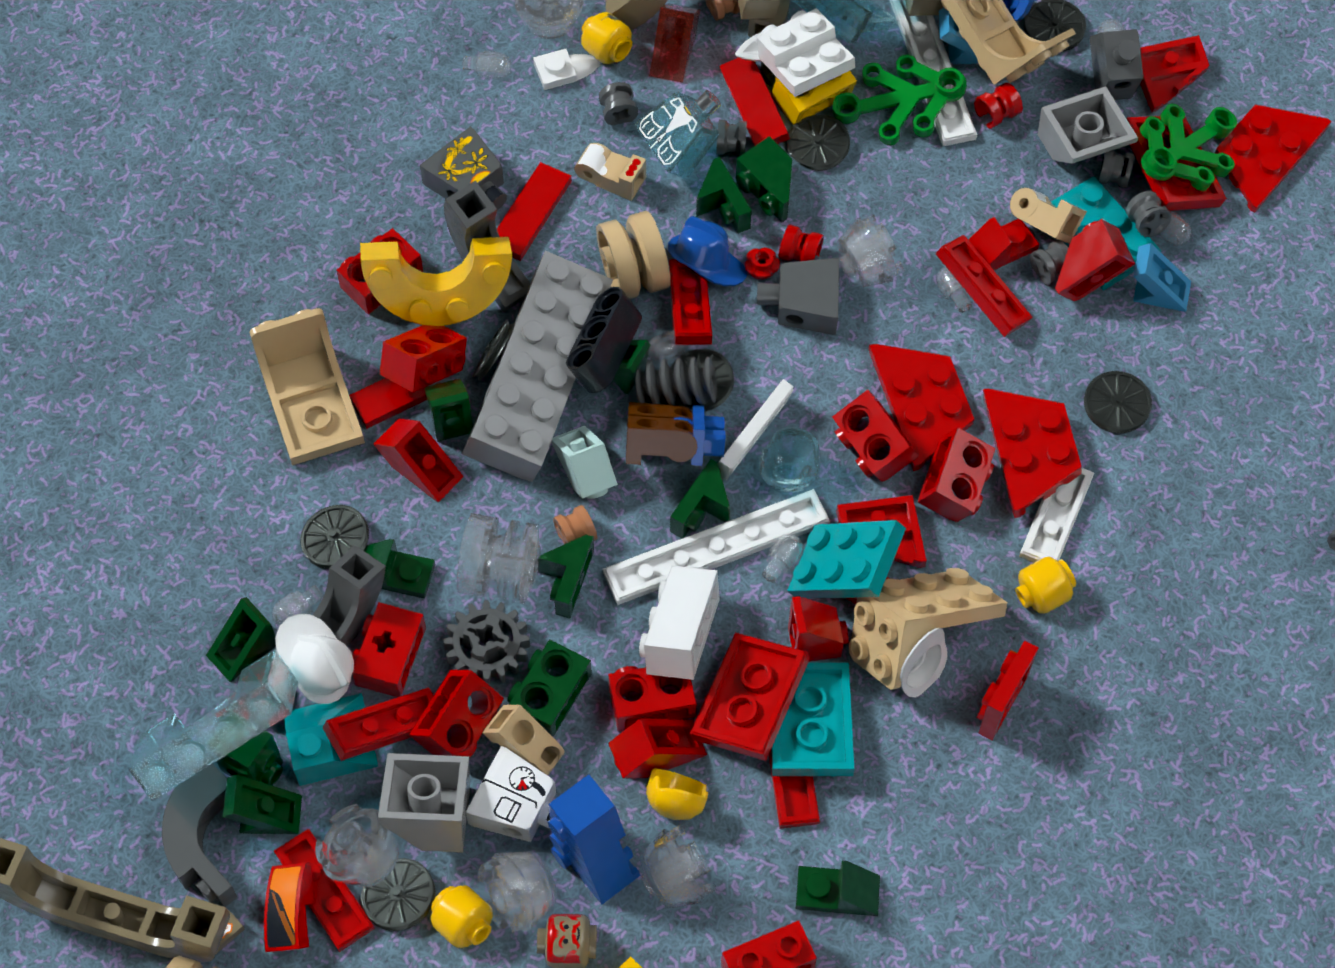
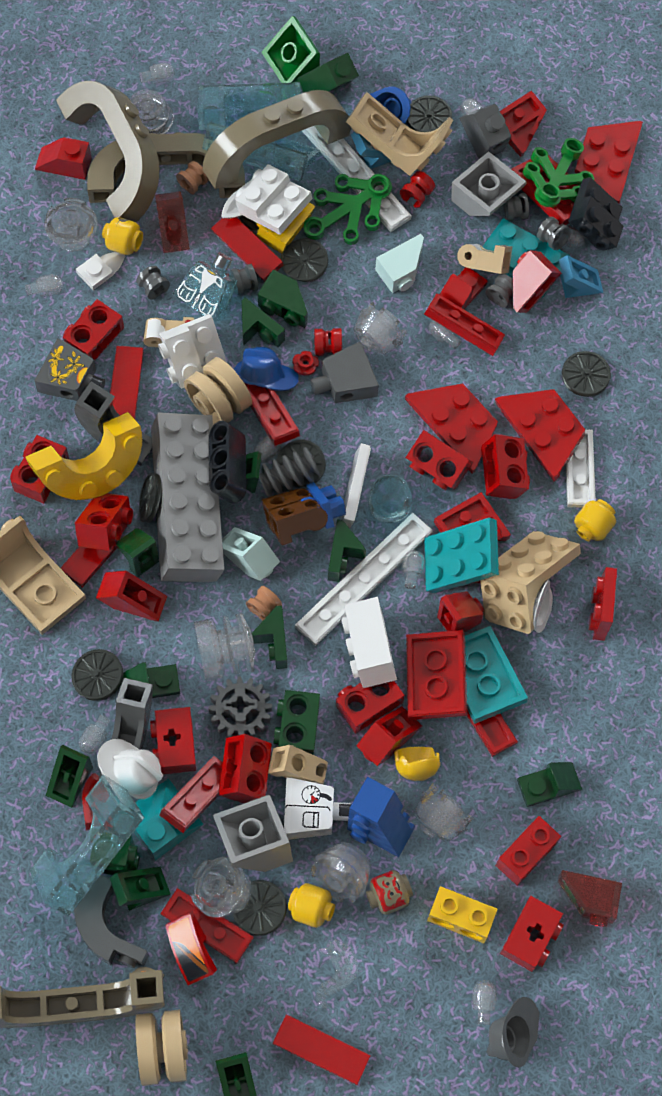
camera: 25 degrees left, 5 degrees up
(519, 139) = (98, 335): none -> red brick
(625, 189) = (190, 348): none -> white plate
(936, 186) = (400, 264): none -> light aqua slope
(1216, 212) = (596, 215): none -> black plate

